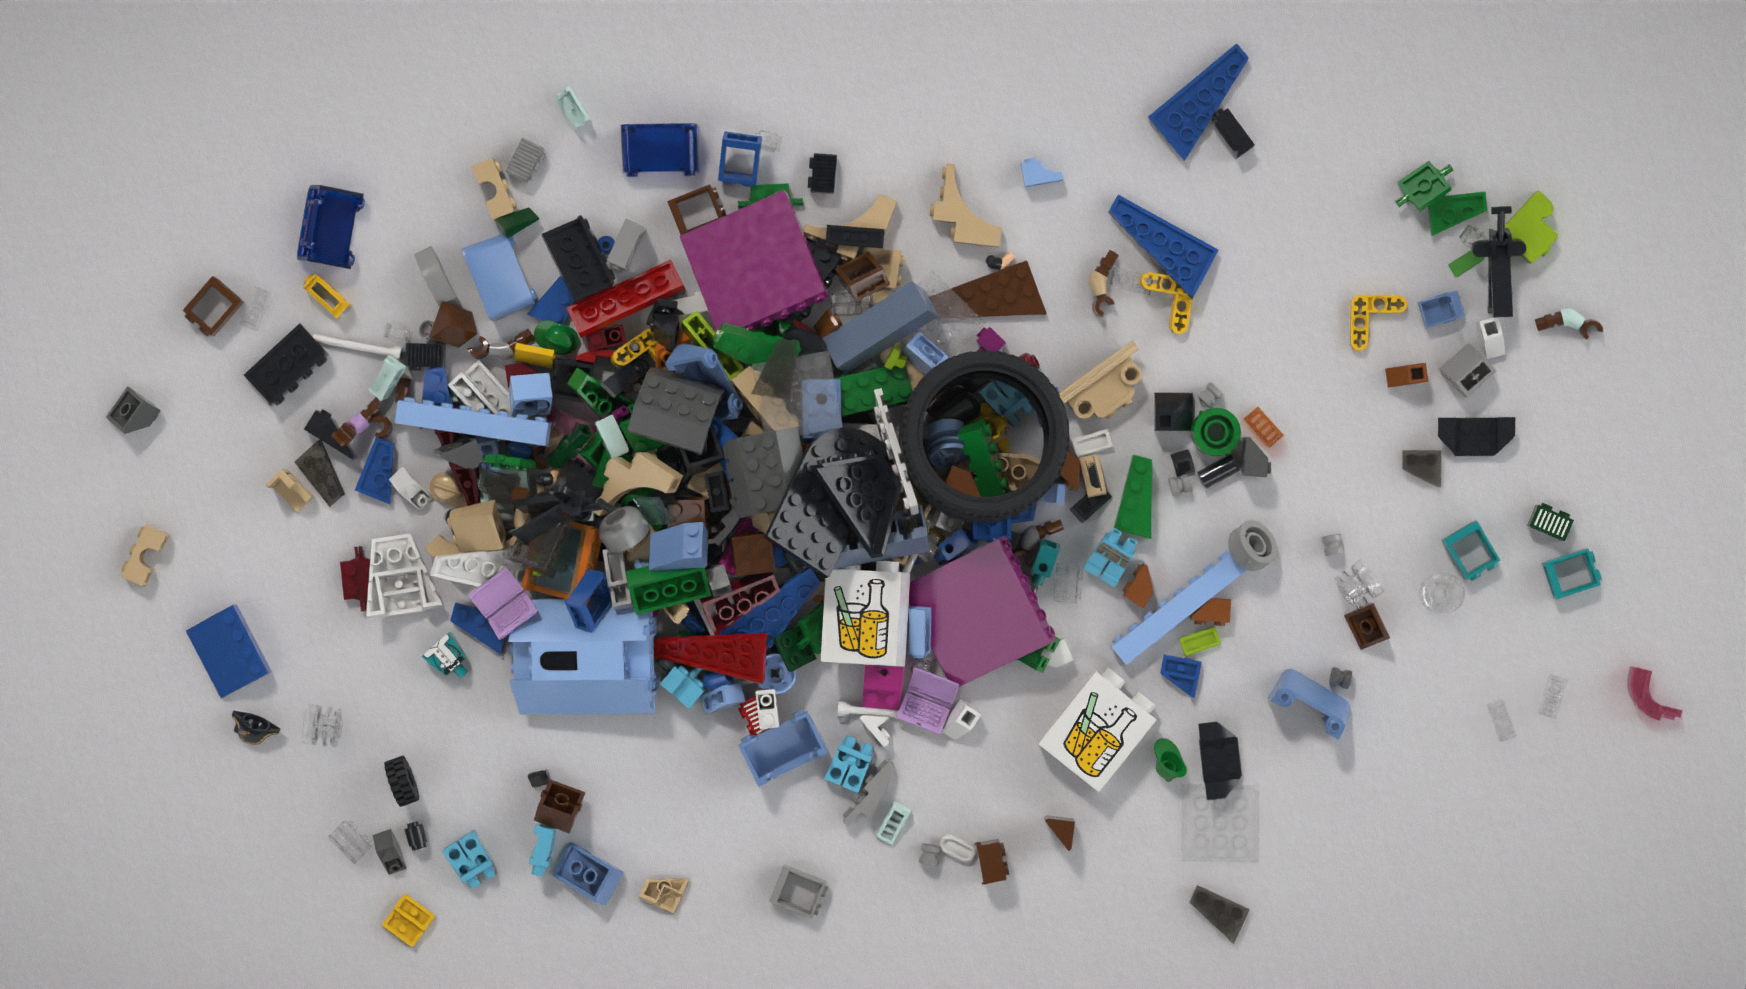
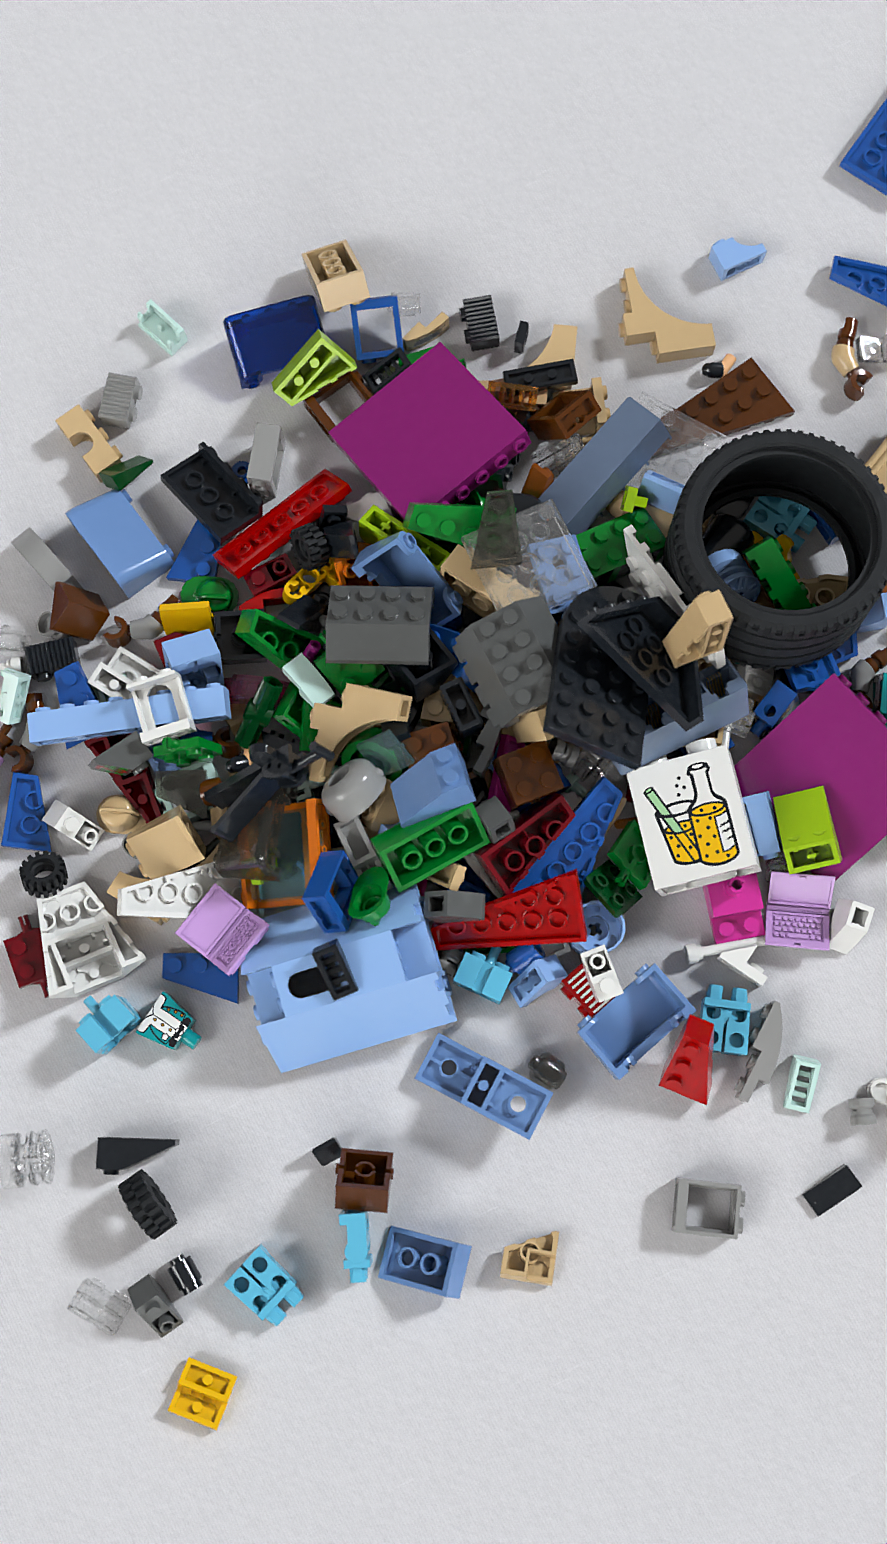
camera: 20 degrees left, 10 degrees down
(381, 511) = (45, 884): none -> black tyre
(393, 739) = (123, 1153): none -> black slope
(403, 643) = (110, 1023): none -> medium azure brick
(485, 428) = (140, 691): none -> white panel
(568, 648) = (326, 973): none -> black slope
(614, 612) = (370, 896): none -> green piece
(640, 327) = (309, 546): none -> black tyre
(662, 763) = (484, 1086): none -> medium blue bracket
(673, 633) = (454, 906): none -> dark grey slope
(680, 181) = (312, 368): none -> lime wedge
(711, 764) = (547, 1071): none -> clear smoke head
(717, 111) = (336, 276): none -> tan brick
(725, 202) = (377, 371): none -> black slope
(773, 171) = (422, 335): none -> tan slope
(815, 788) = (690, 1061): none -> red wedge
(837, 245) = (510, 404): none -> clear orange slope
(852, 194) = (521, 337): none -> black tile
(891, 903) = (832, 1190): none -> black slope
(897, 491) = (699, 630): none -> tan wedge
(947, 646) = (807, 830): none -> lime slope

